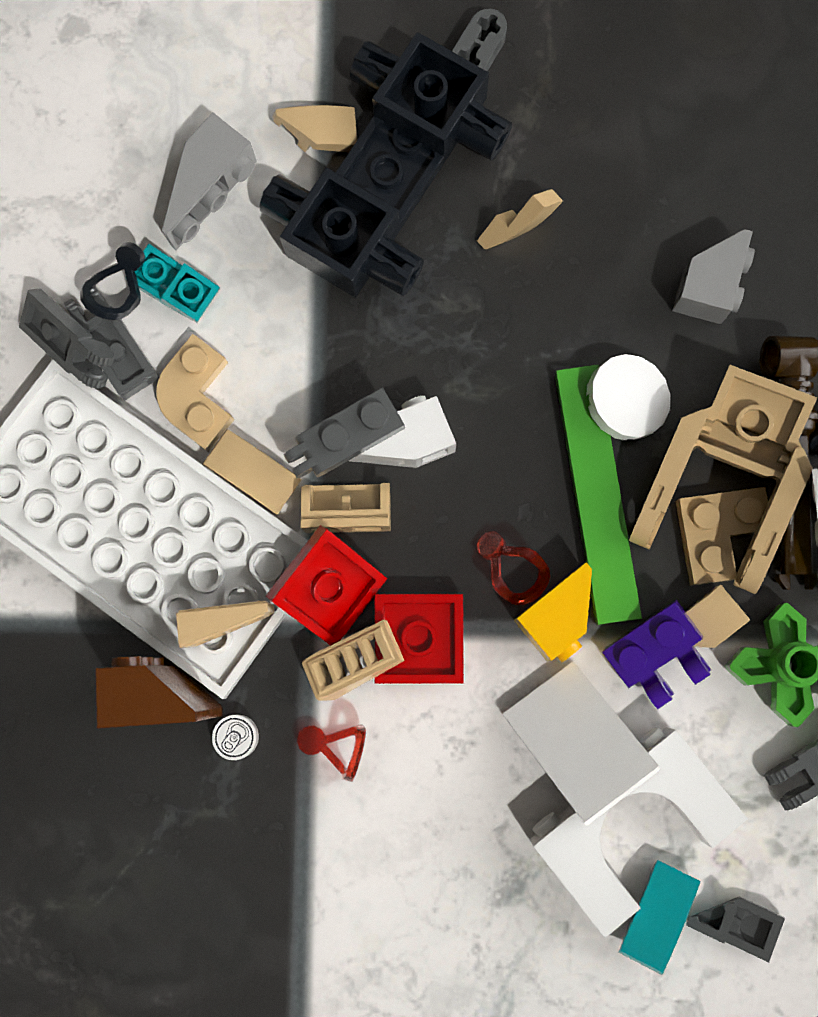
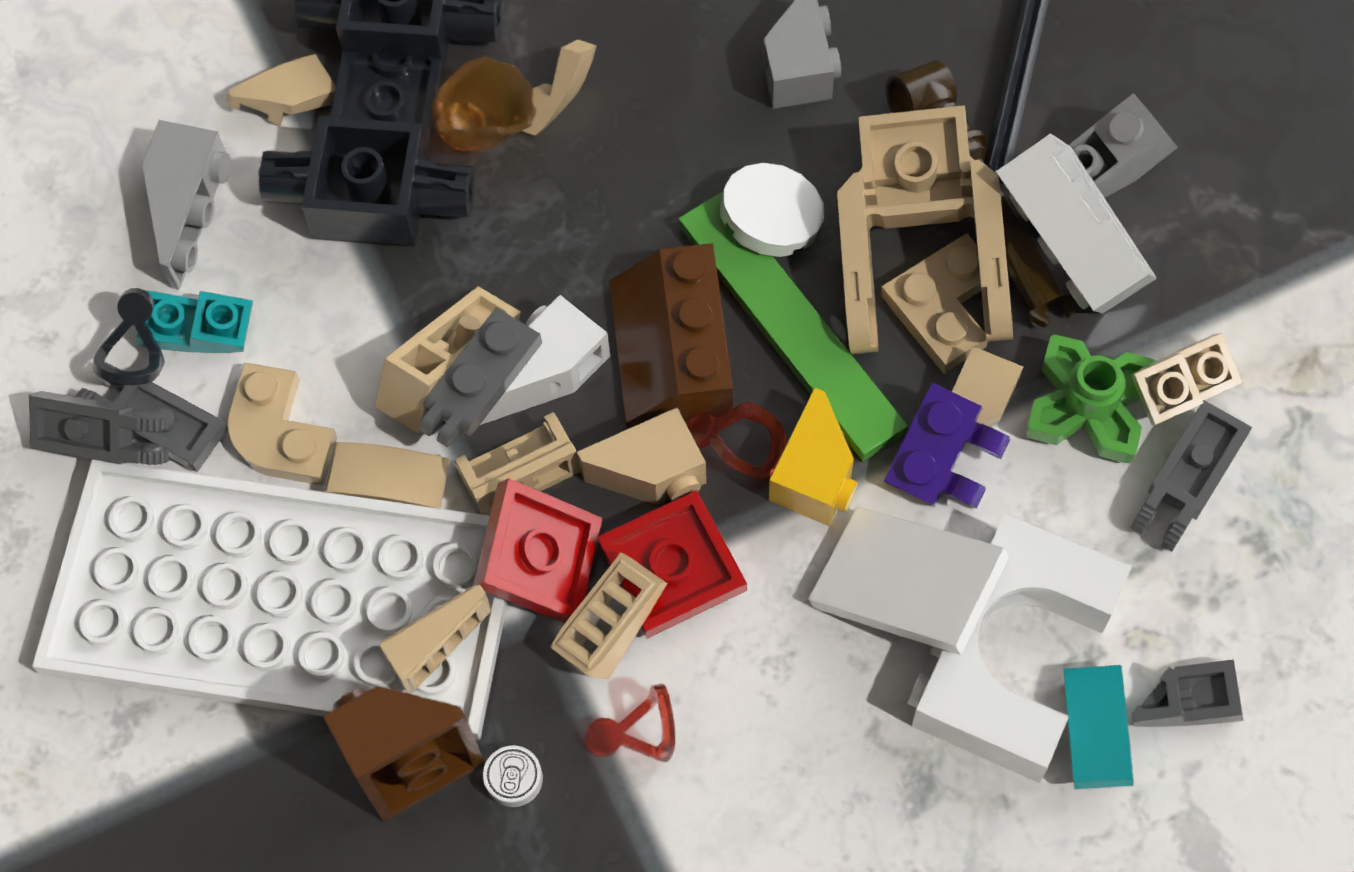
camera: 30 degrees left, 15 degrees down
(323, 397) = (424, 358): none -> tan slope
(441, 554) = (647, 461): none -> tan slope
(455, 211) = (483, 105): none -> clear orange hair
(504, 464) = (672, 335): none -> reddish brown slope

